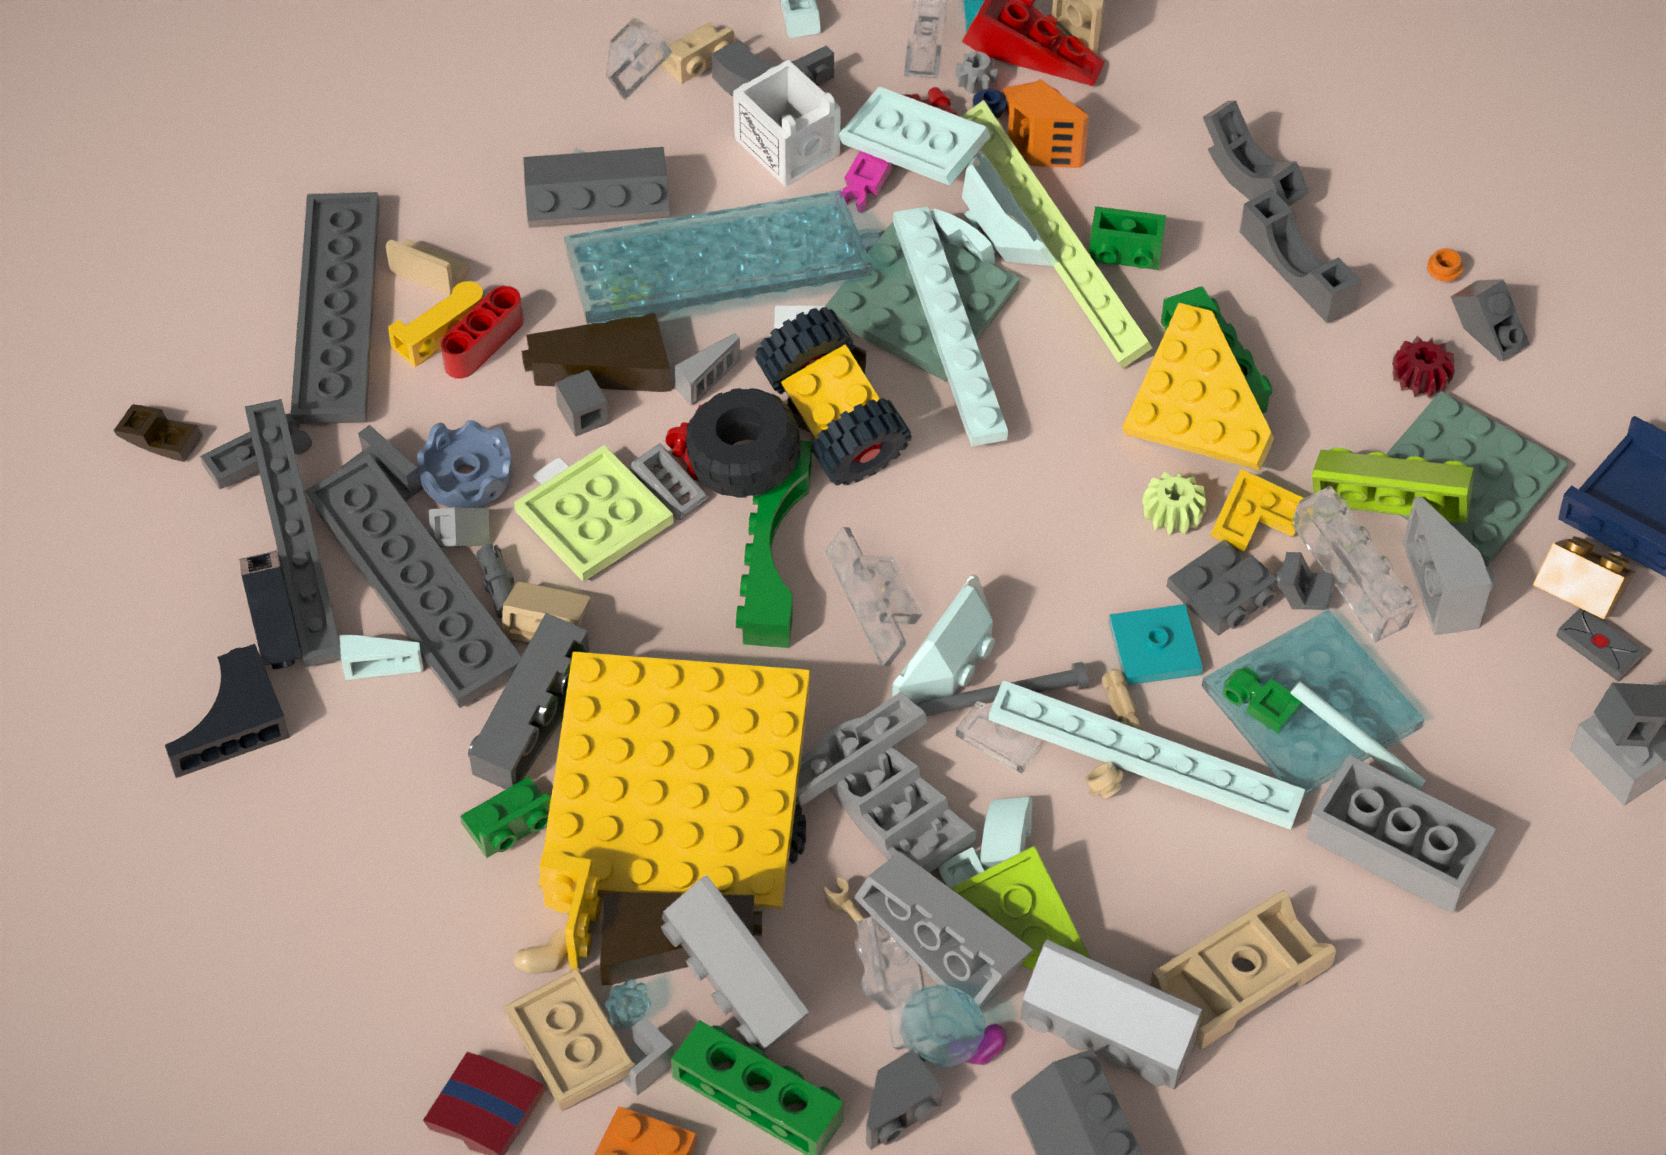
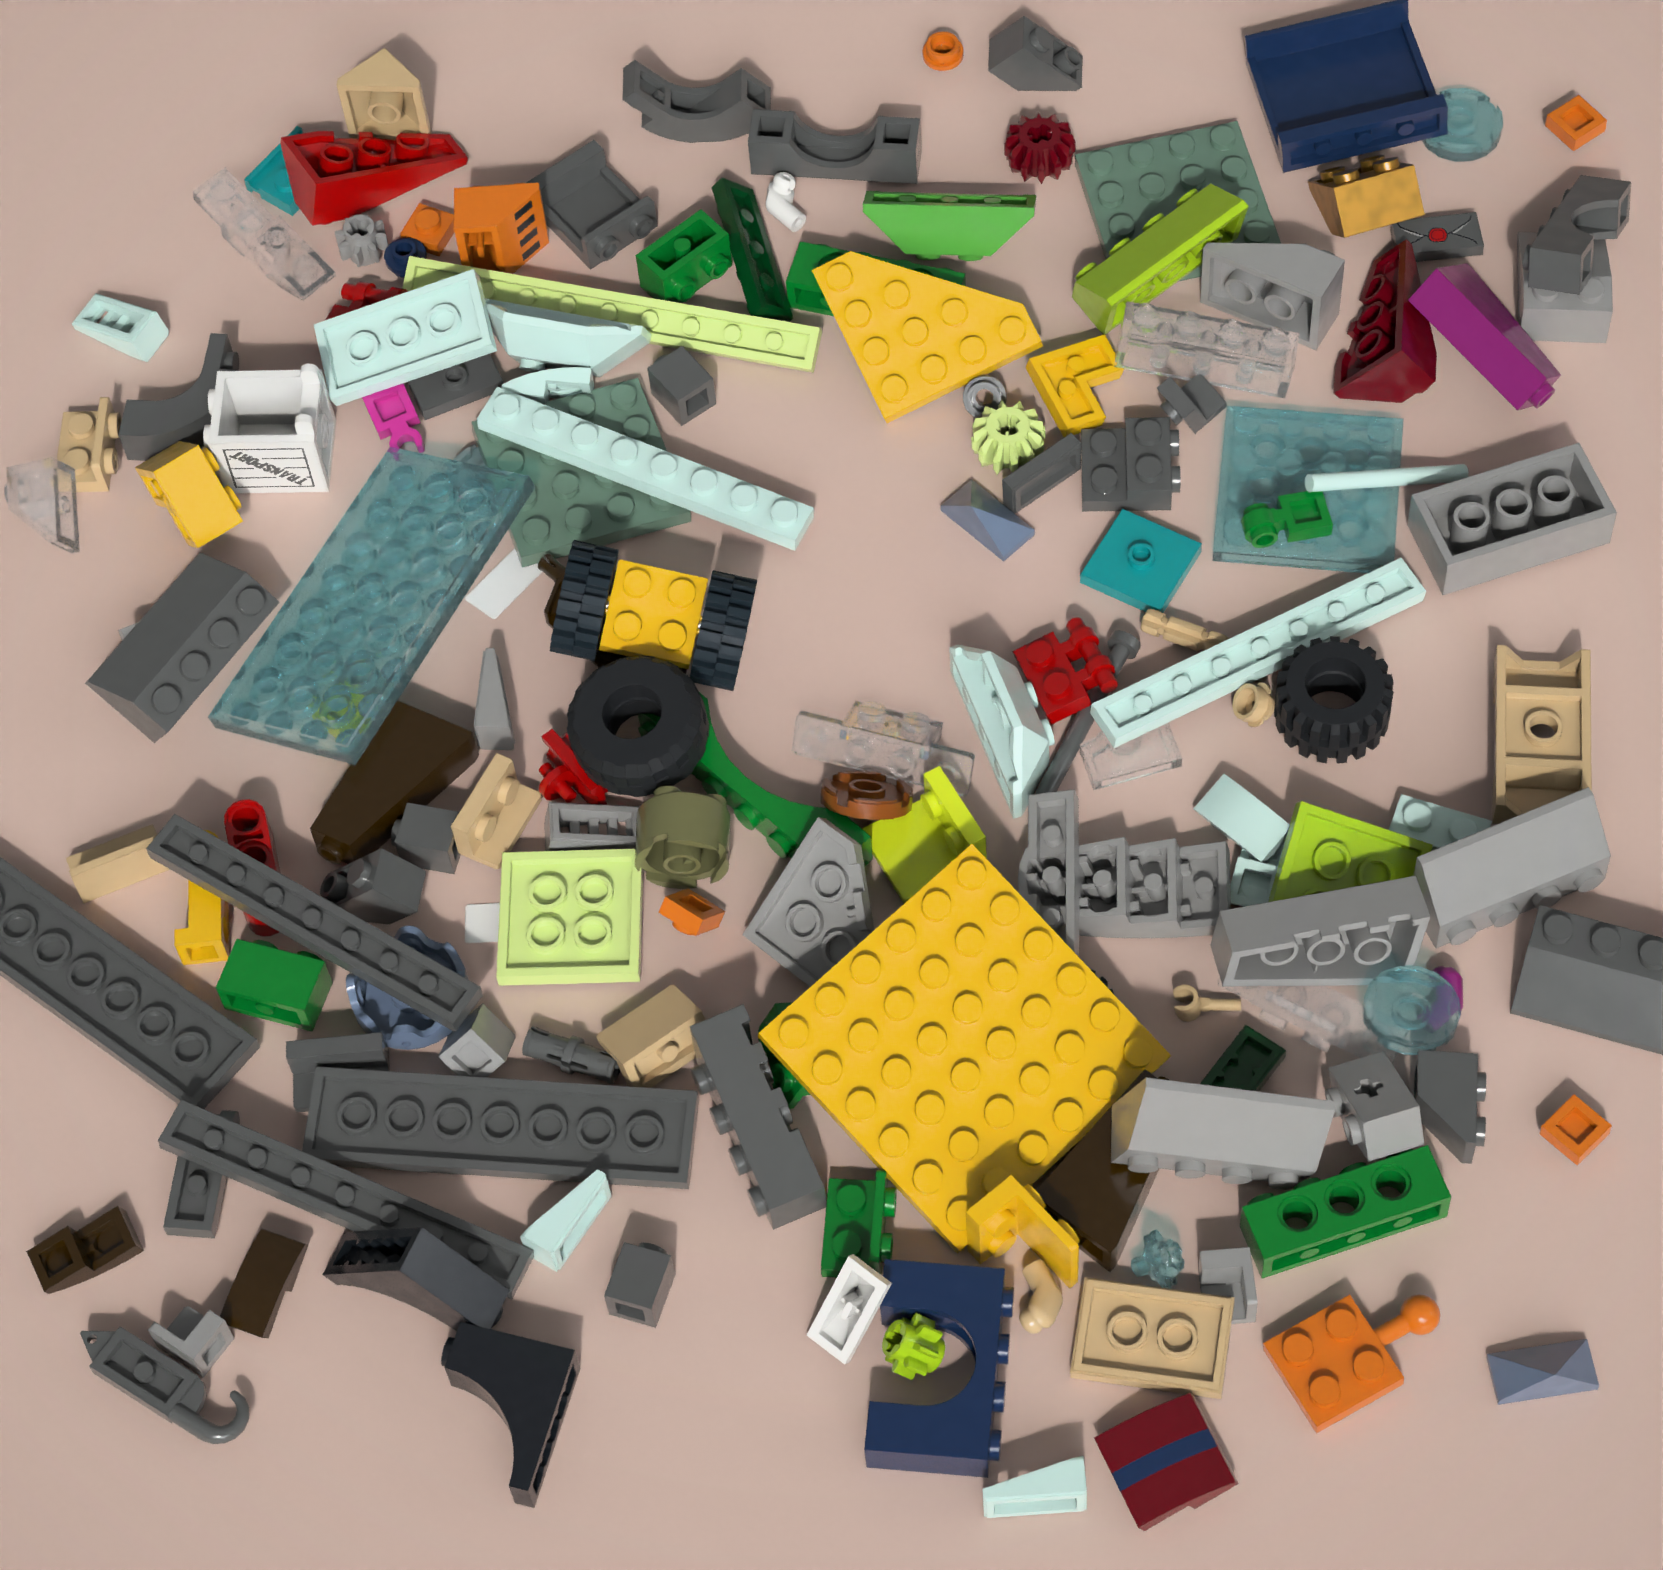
camera: 45 degrees left, 5 degrees up
(99, 528) = (159, 1383): none -> dark grey plate
(142, 526) = (194, 1339): none -> light grey panel
(214, 528) = (262, 1281): none -> dark brown slope
(367, 724) = (640, 1283): none -> dark grey brick
(406, 1048) = (1043, 1491): none -> light aqua slope
(408, 394) = (274, 984): none -> green brick
(411, 970) = (957, 1433): none -> dark blue arch
(440, 845) = (849, 1309): none -> white slope
(444, 902) = (913, 1346): none -> lime gear
(457, 381) = (315, 922): none -> dark grey plate
(519, 398) = (376, 887): none -> dark grey slope
(627, 420) = (494, 814): none -> tan bracket
(653, 572) = (691, 912): none -> orange plate
(694, 526) = (682, 838): none -> olive brick
(704, 116) = (187, 486): none -> yellow brick
(714, 625) = (816, 905): none -> light grey plate
(810, 958) = (1246, 1062): none -> dark green plate
(820, 605) = (866, 795): none -> dark orange tile
(830, 658) = (925, 839): none -> neon yellow bracket
(846, 1051) = (1375, 1106): none -> light grey brick
(920, 191) = (455, 386): none -> dark grey plate
(1014, 652) = (1050, 670): none -> red plate
(1035, 303) = (681, 385): none -> dark grey brick
(1105, 538) = (987, 520): none -> sand blue slope
(1110, 946) = (1434, 822): none -> light aqua plate
(1124, 165) = (592, 206): none -> dark grey panel
(1151, 795) = (1340, 669): none -> black tyre
(1164, 539) = (1042, 473): none -> dark grey tile
(1174, 270) = (751, 251): none -> dark green plate
(1187, 463) = (978, 383): none -> plate
(1234, 260) = (780, 201): none -> white arm
(1303, 352) = (948, 221): none -> bright green wedge
(1485, 670) = (1391, 341): none -> dark red wedge
(1538, 716) = (1486, 335): none -> magenta slope

